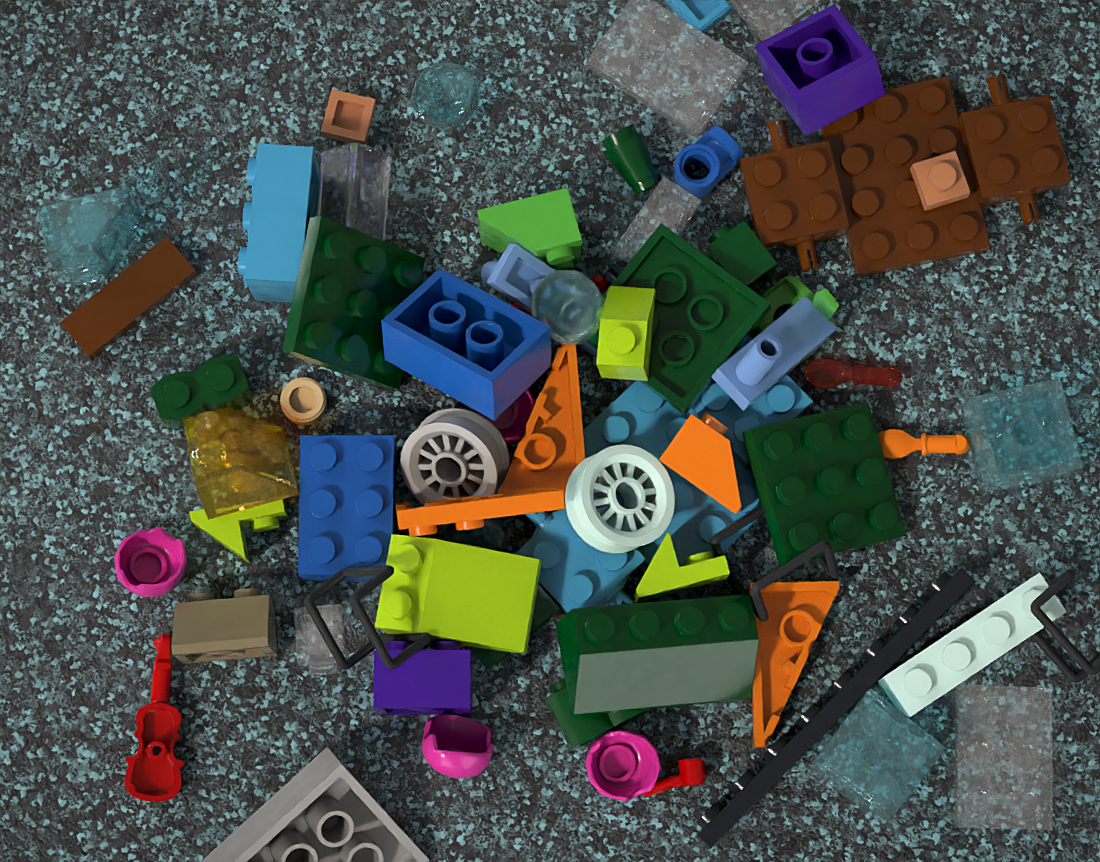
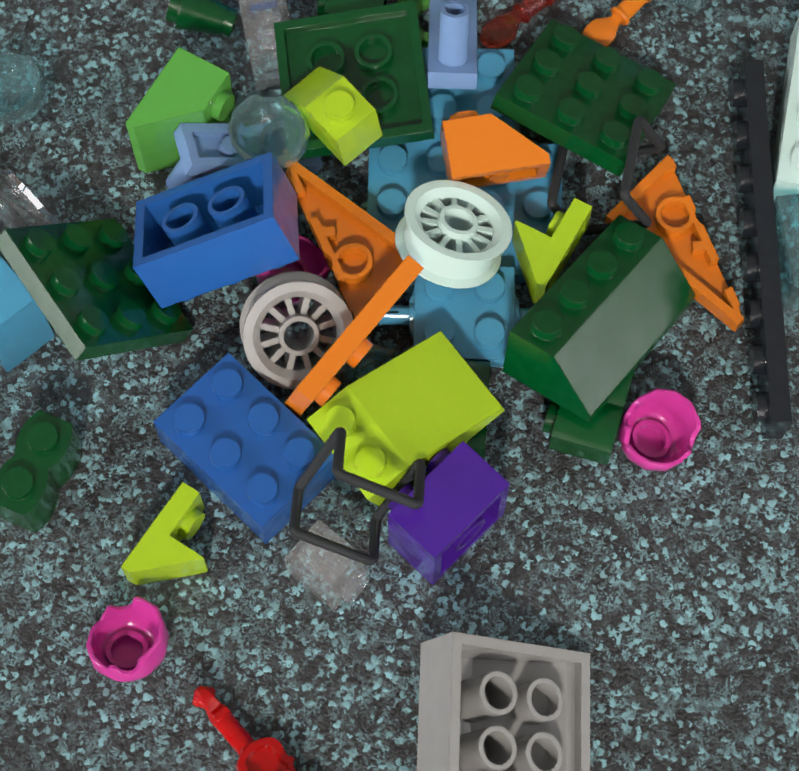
camera: 45 degrees left, 10 degrees down
(224, 627) = (244, 630): dark tan slope -> none
(238, 461) = (120, 493): clear yellow slope -> none
(303, 401) = (125, 408): tan tile -> none
(456, 745) = (521, 542): dark pink hair -> none
(690, 774) = (712, 392): red hand -> none

